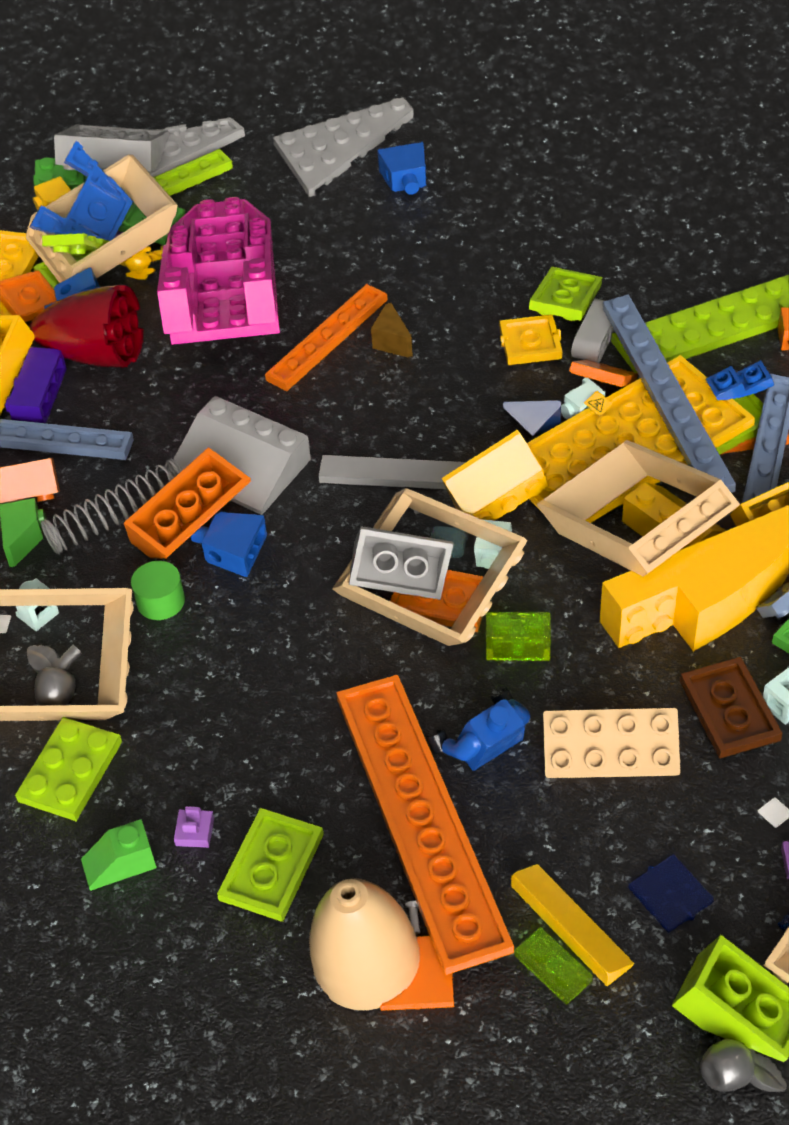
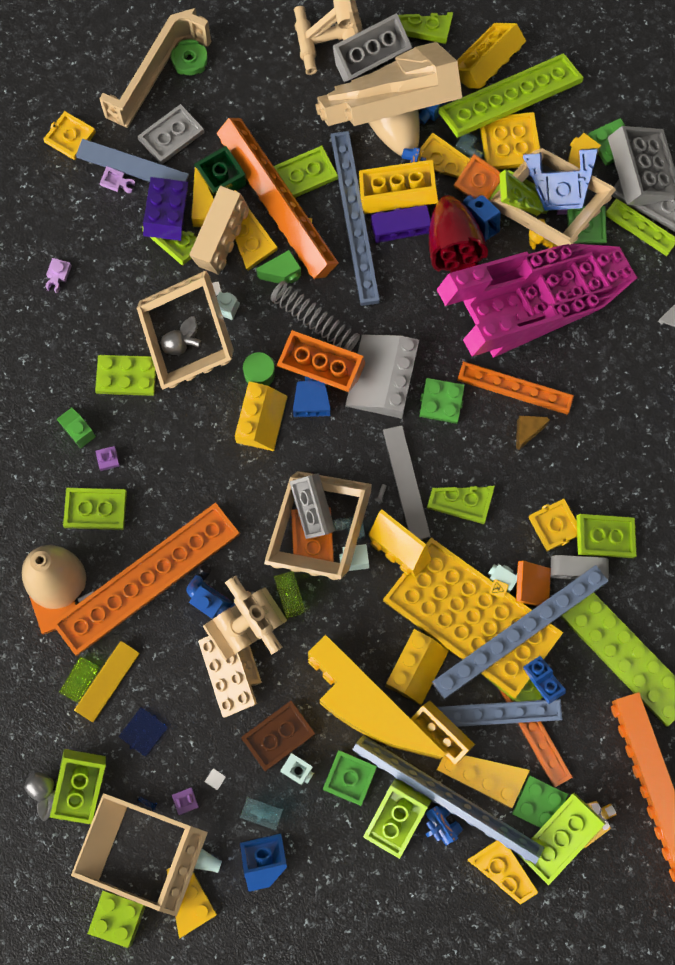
camera: 65 degrees right, 25 degrees up
(226, 610) = (260, 416): none -> yellow slope
(308, 408) = (441, 400): none -> bright green plate
(461, 419) = (464, 503): none -> lime wing
(535, 416) = (481, 547): slope -> none
(542, 677) = (246, 622): none -> tan plate
(615, 474) = (412, 606): tan window -> none

